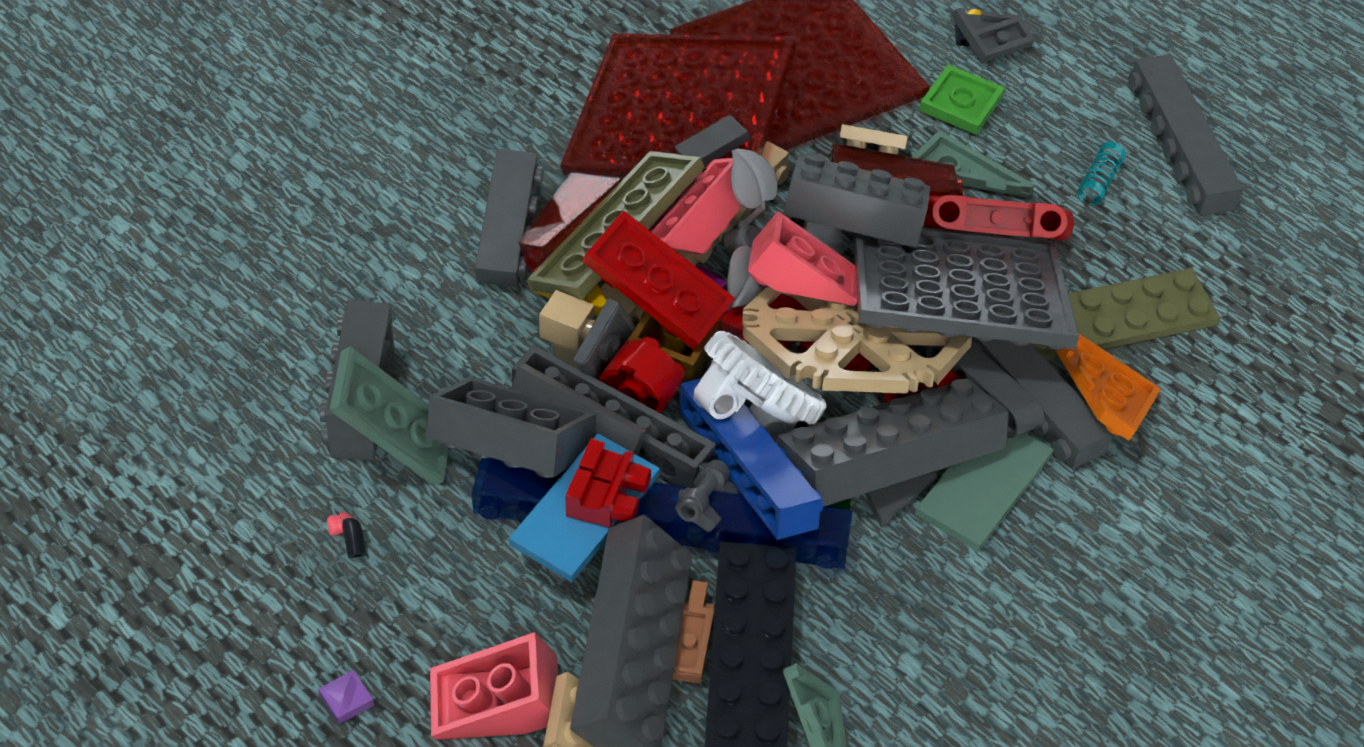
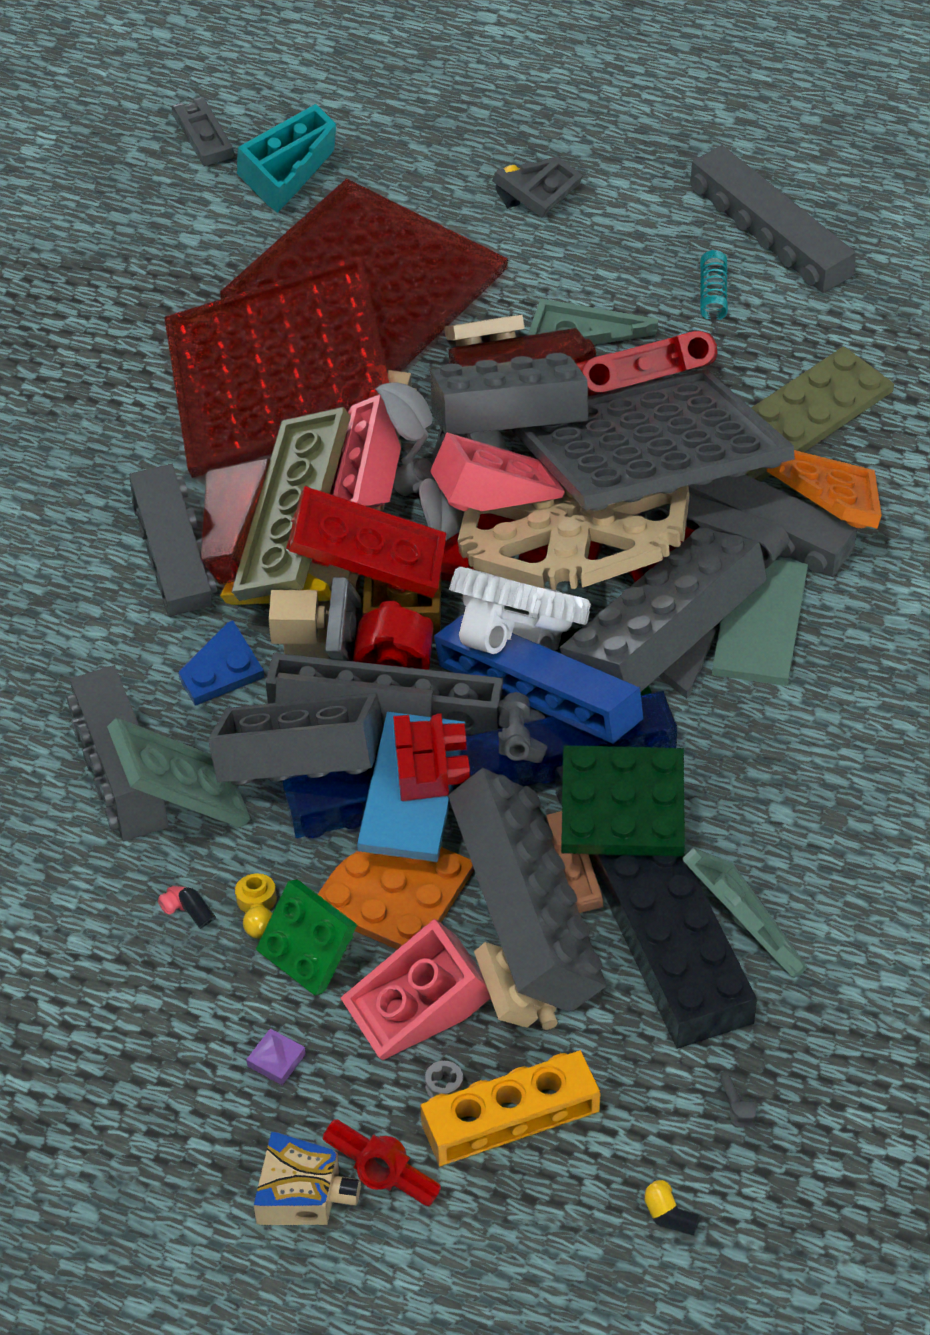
camera: 20 degrees left, 0 degrees up
(399, 571) = (256, 897): none -> yellow plate
(425, 603) = (306, 937): none -> green plate
(493, 340) = (220, 666): none -> blue wing
(522, 596) = (394, 894): none -> orange plate
(715, 140) = (340, 386): dark grey tile -> none
(758, 595) = (623, 801): none -> dark green plate
(962, 99) = (543, 260): bright green plate -> none

